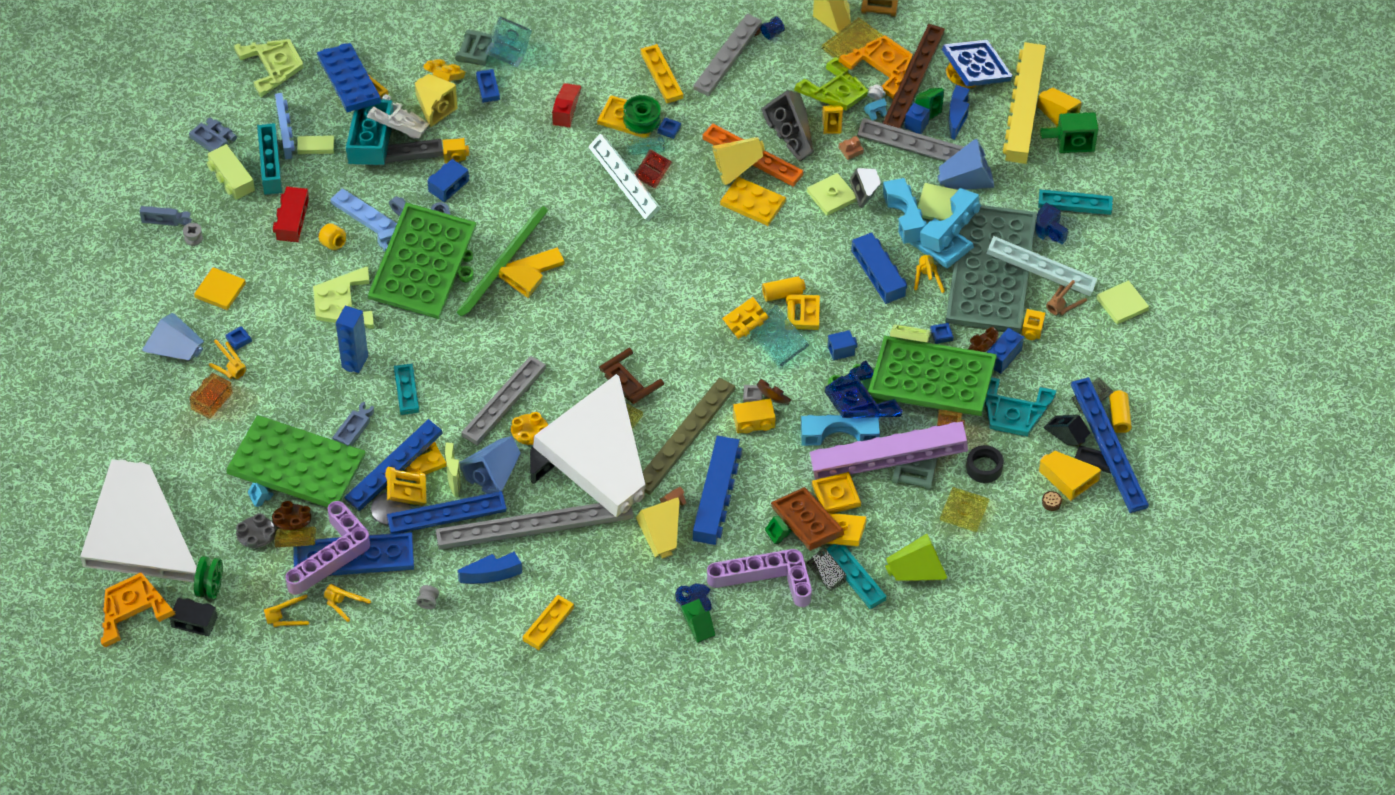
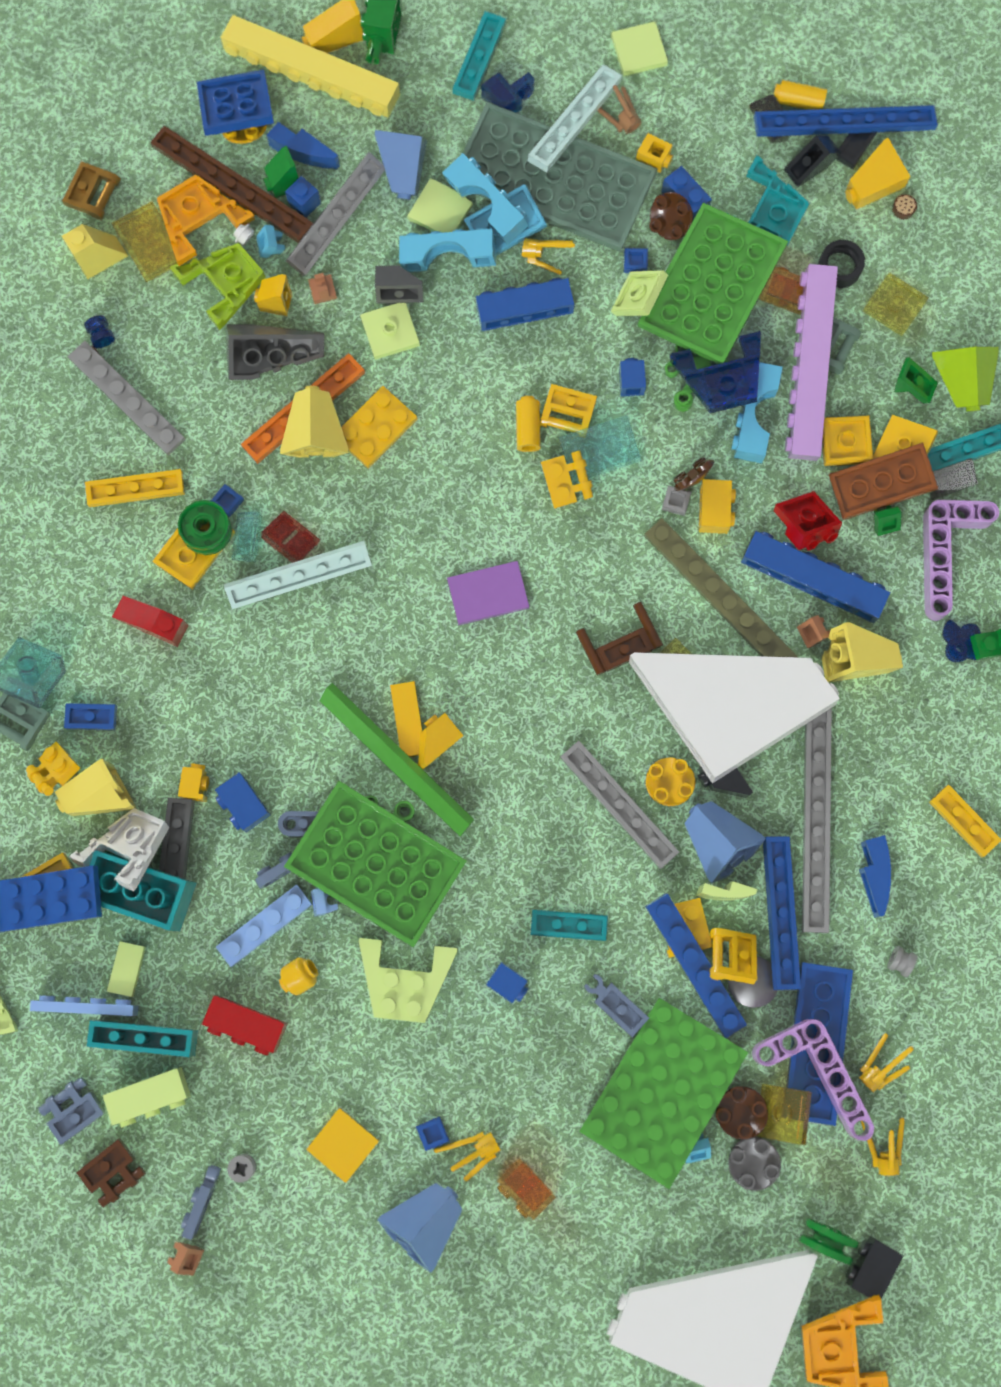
camera: 75 degrees left, 25 degrees up
(125, 216) = (186, 1259): none -> nougat tile
(179, 161) = (105, 1166): none -> reddish brown plate
(644, 292) = (488, 593): none -> medium lavender tile
(759, 474) = (808, 521): none -> red plate
(899, 525) = (916, 381): none -> green slope

